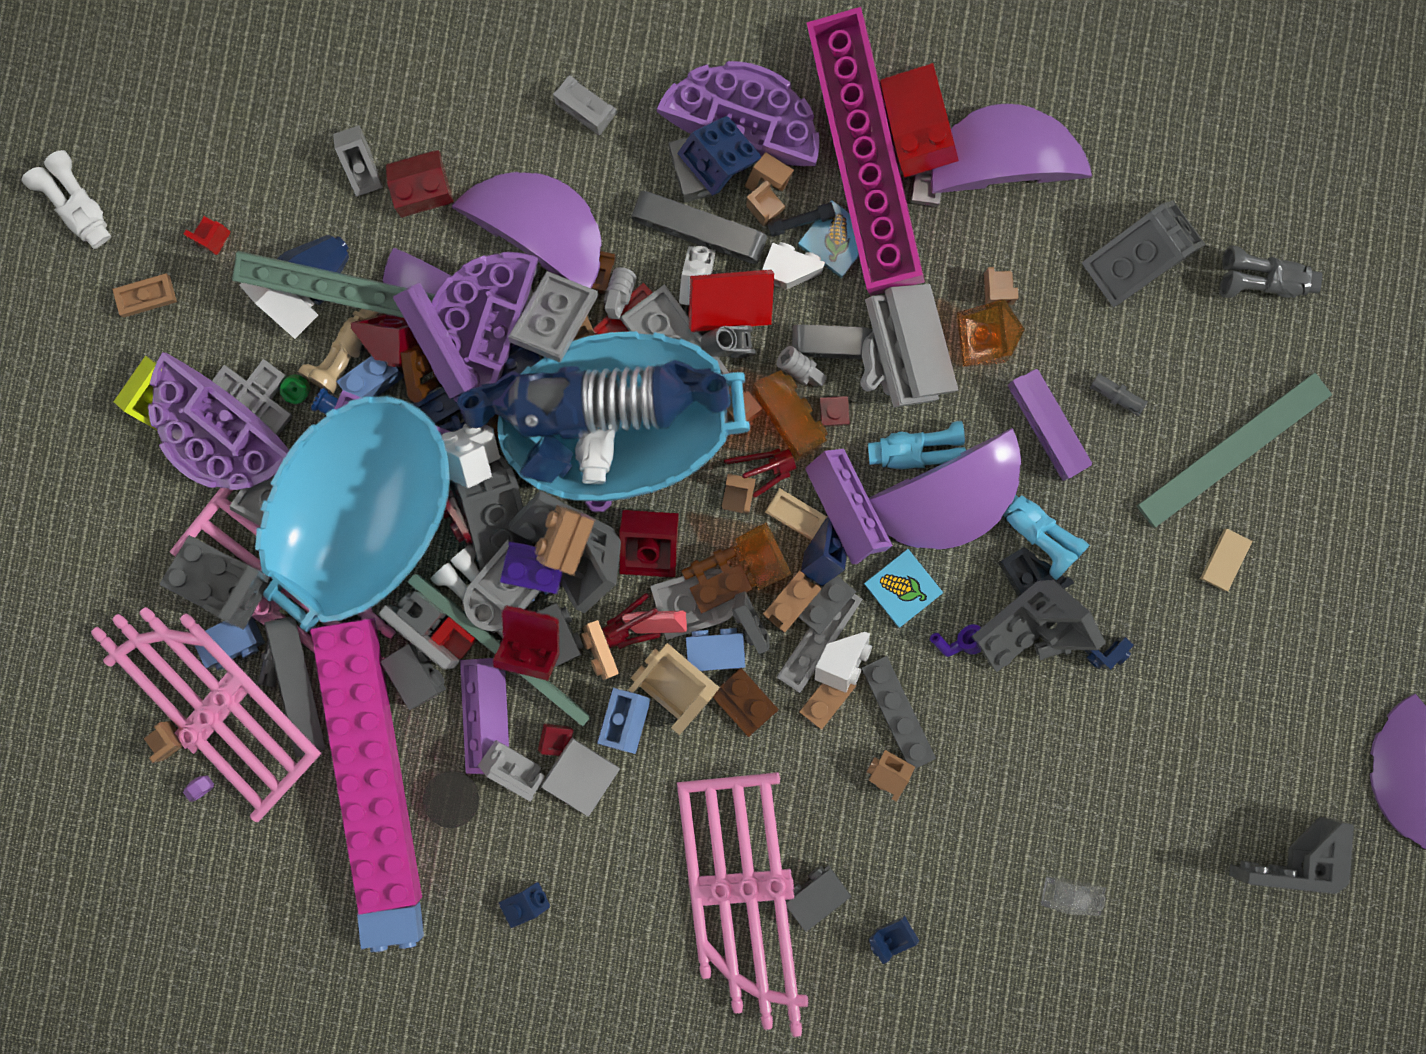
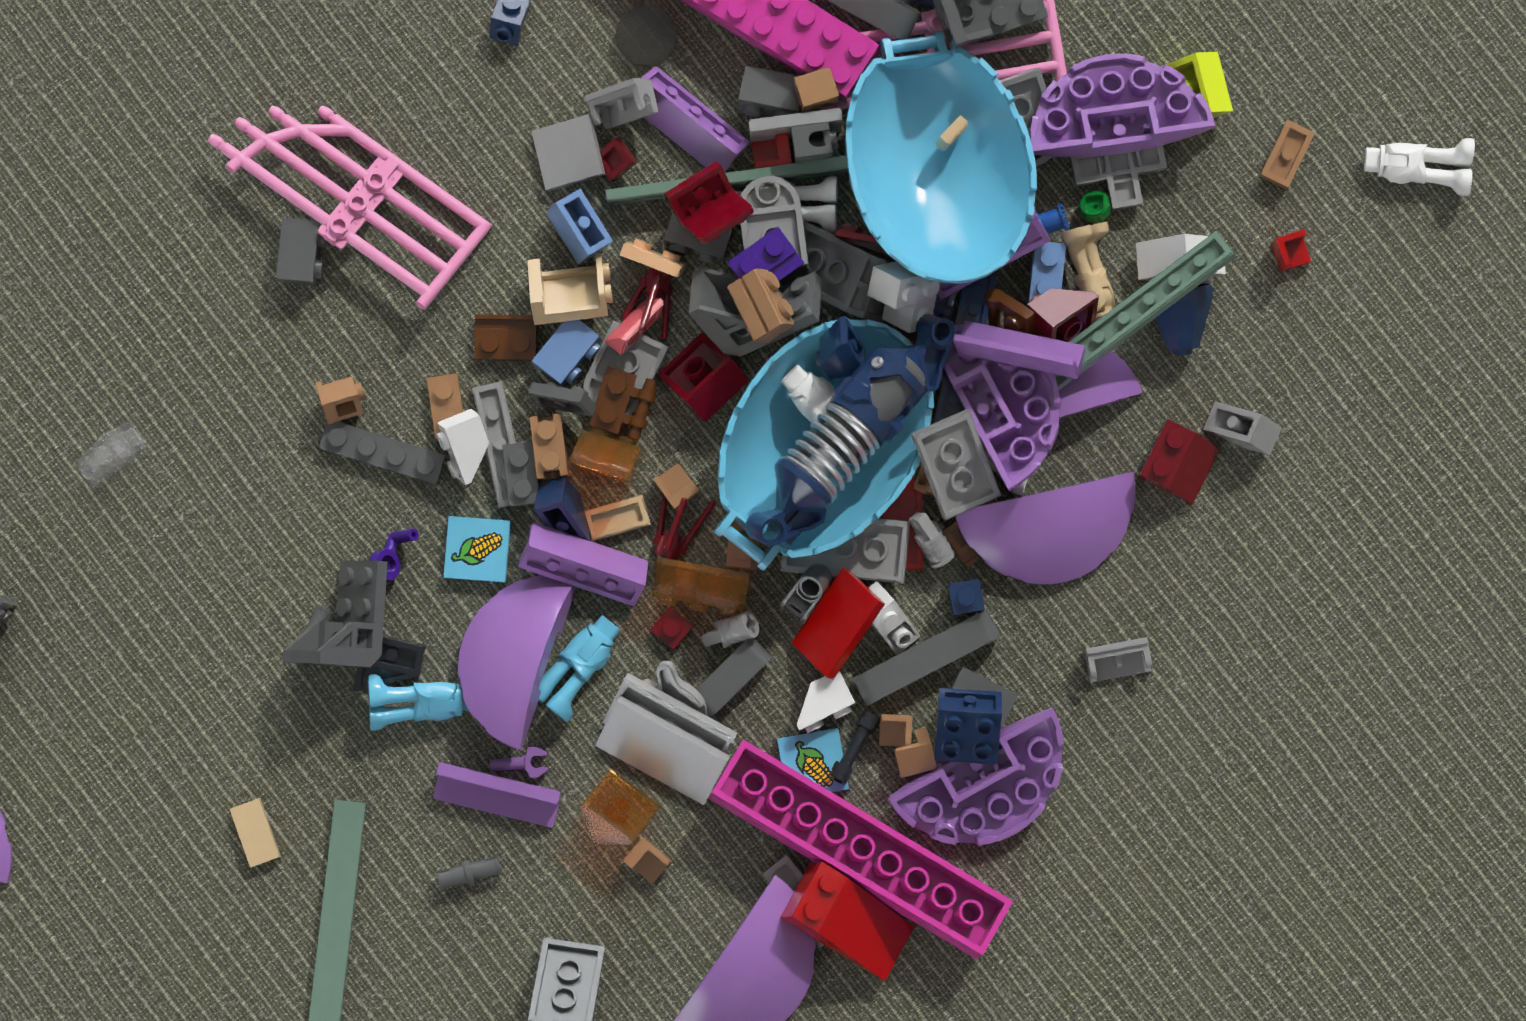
camera: 135 degrees right, 0 degrees up
(328, 524) = (952, 133): none -> tan tile
(381, 643) = (816, 90): none -> medium nougat panel
(636, 236) = (965, 597): none -> dark blue brick
(892, 939) = (212, 281): dark blue bracket -> none
(1019, 431) = (520, 763): none -> medium lavender bar
(1115, 654) = (265, 670): dark blue bracket -> none

